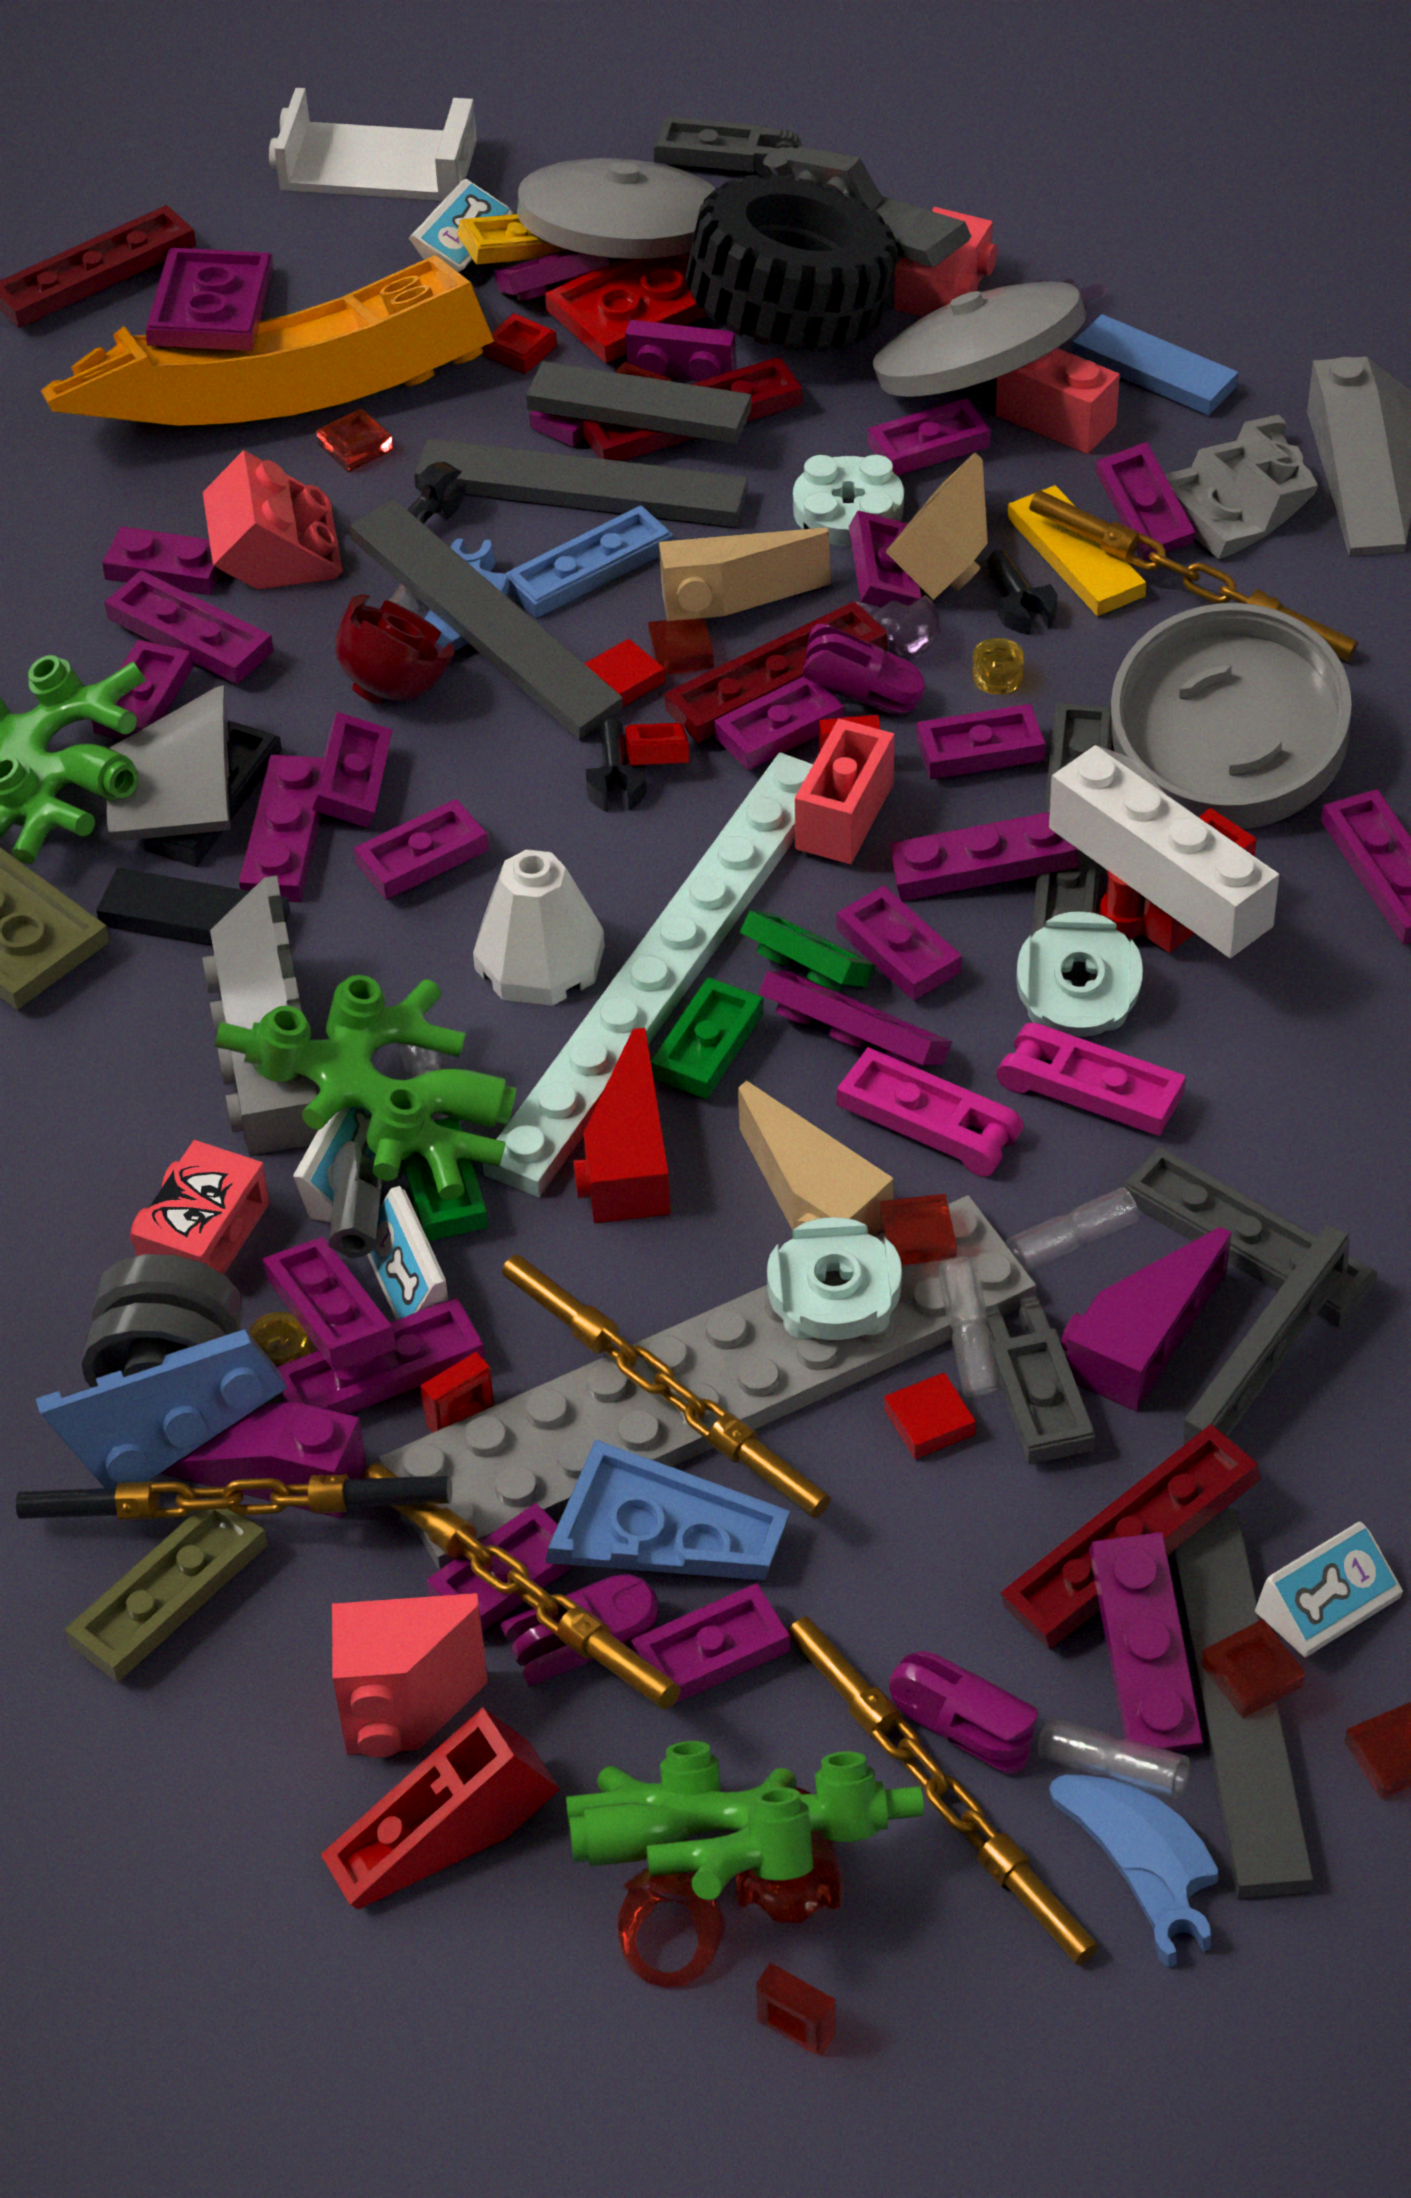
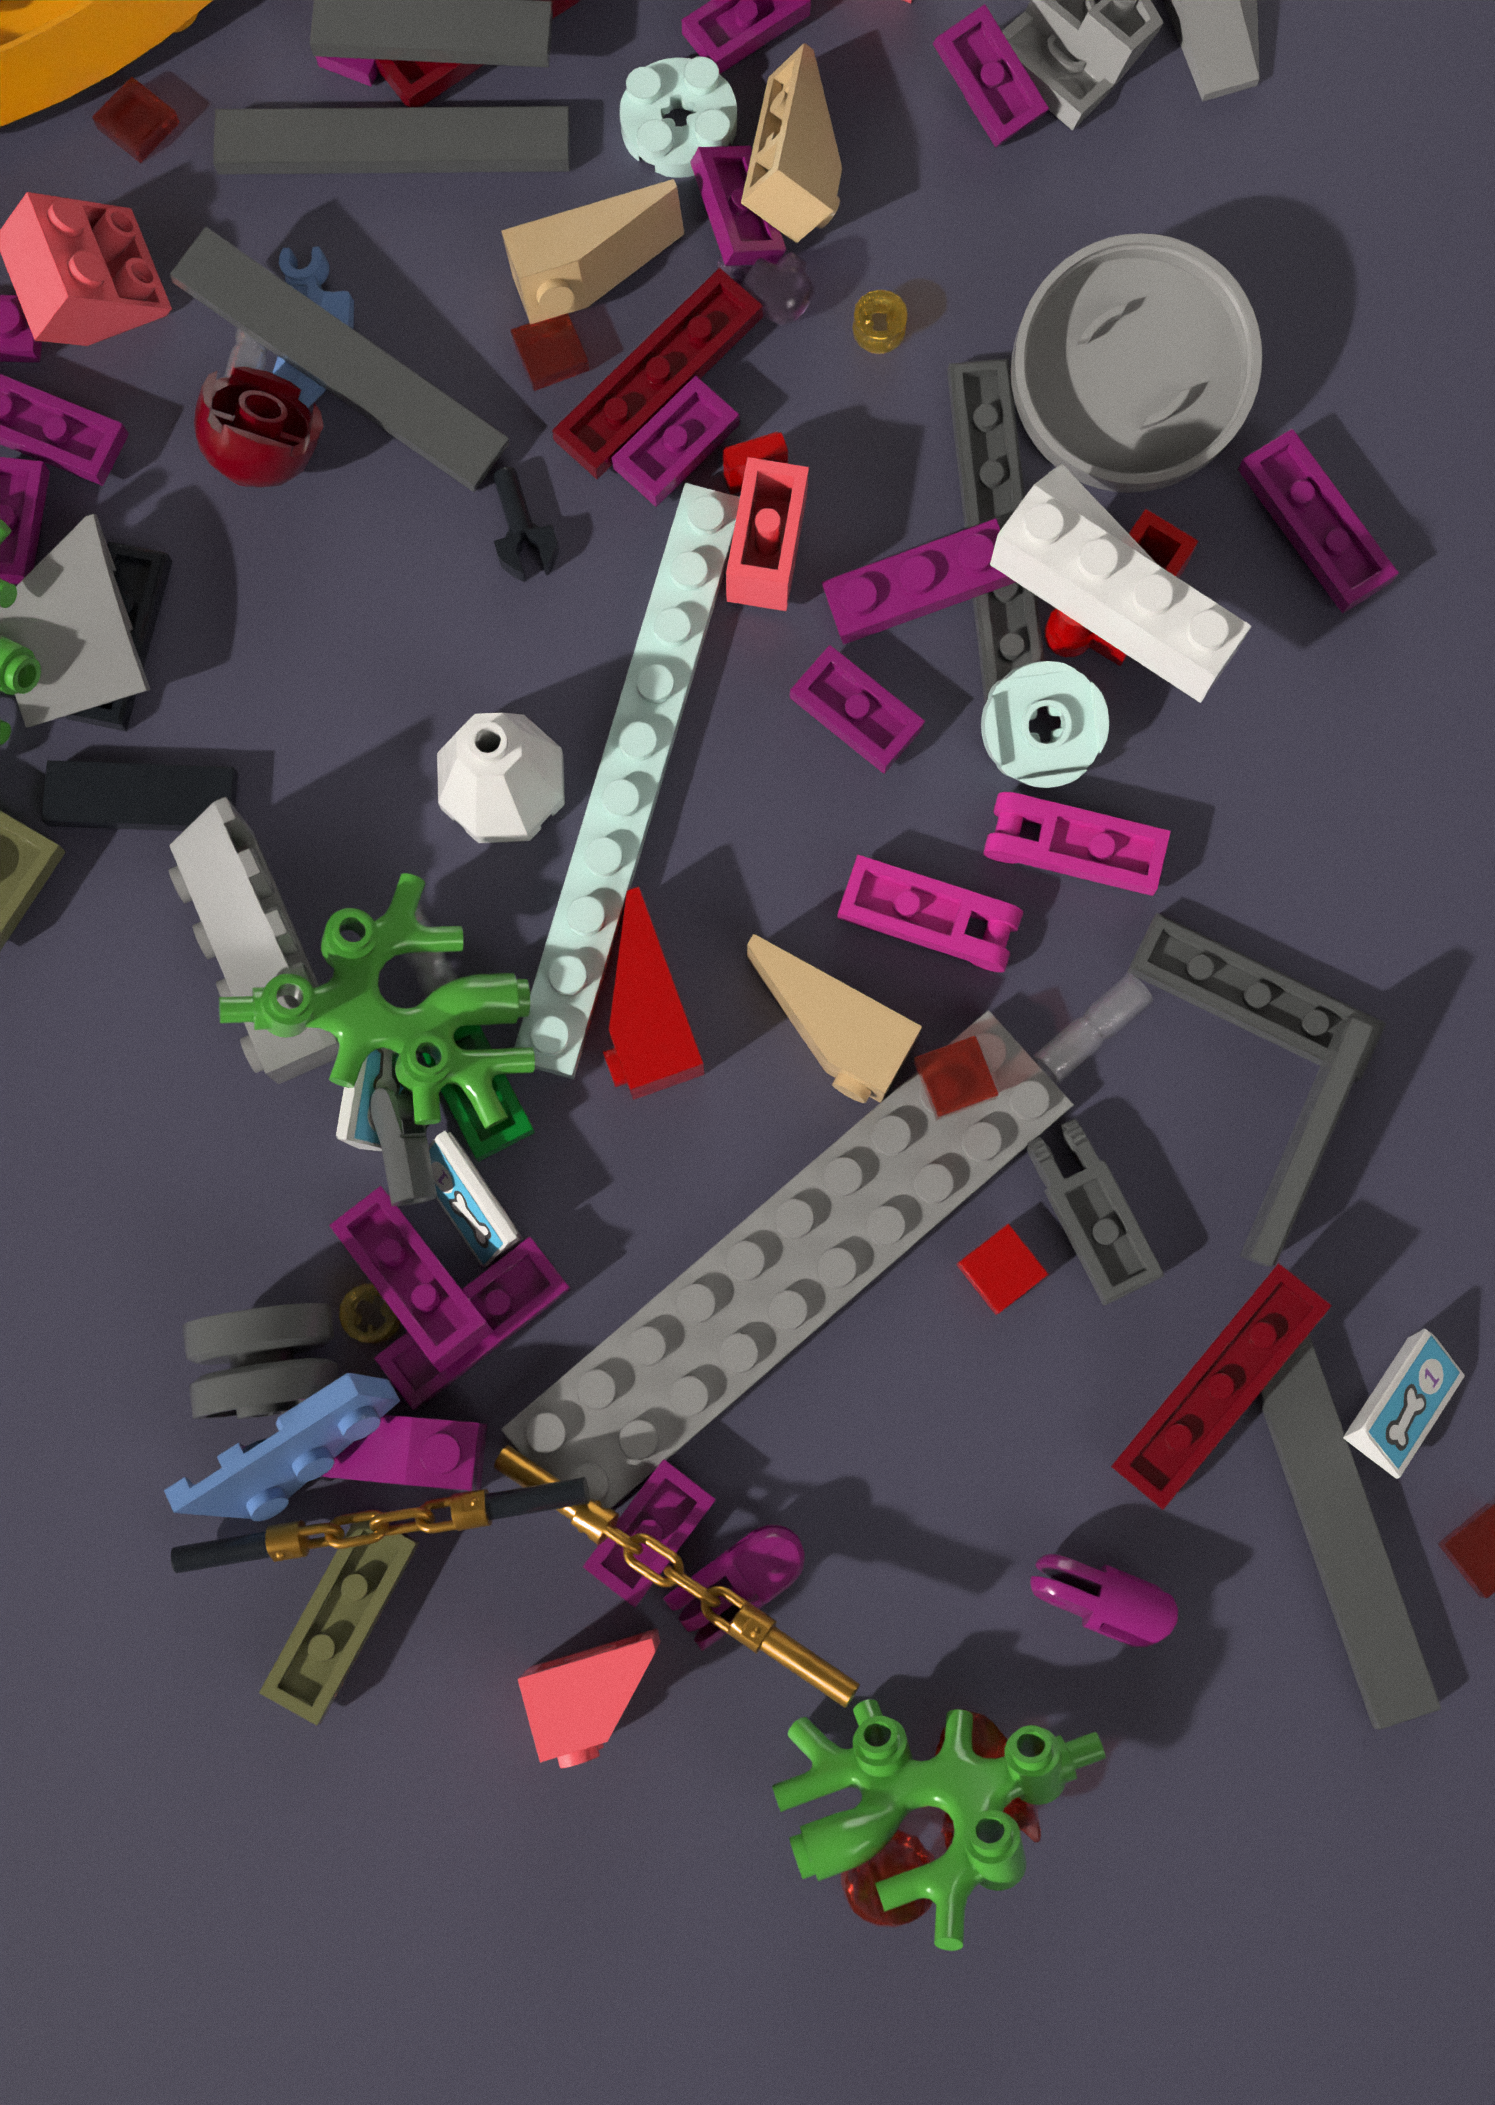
camera: 15 degrees left, 30 degrees up
(203, 1207) = (253, 1187): coral brick -> none
(284, 826) = (204, 669): magenta plate -> none
(352, 769) = (255, 587): magenta plate -> none
(421, 849) = (352, 677): magenta plate -> none
(440, 492) = (250, 187): black bar -> none
(443, 1811) = (659, 1814): red slope -> none
(457, 1393) = (559, 1349): red tile -> none
(587, 561) = (427, 249): medium blue tile -> none
(628, 670) = (502, 397): red tile -> none
(656, 743) = (558, 495): red tile -> none
(663, 1520) = (785, 1456): medium blue wing -> none
(707, 1038) = (695, 865): green plate -> none
(715, 1641) = (859, 1575): magenta plate -> none
(727, 1434) = (830, 1357): pearl gold piece -> none
(786, 941) = (770, 737): green plate -> none
(796, 2009) = (1021, 1946): clear red tile -> none
(834, 1311) = (909, 1126): light aqua plate -> none
(853, 1020) = (835, 816): magenta plate -> none
(862, 671) = (749, 367): magenta arm -> none
(971, 1335) = (1027, 1183): clear piece -> none
(980, 741) = (884, 431): magenta plate -> none
(1000, 1854) = (1160, 1735): pearl gold piece -> none
(1011, 608) = (904, 222): black bar -> none
(1092, 573) = (927, 146): yellow tile -> none
(1123, 1760) = (1255, 1625): clear piece -> none
(1124, 541) = (979, 137): pearl gold piece -> none
(1143, 1319) = (1178, 1144): magenta slope -> none
(1145, 1642) = (1255, 1503): magenta plate -> none
(1149, 1848) = (1291, 1699): medium blue piece -> none
(1252, 1668) = (1354, 1506): clear red tile -> none

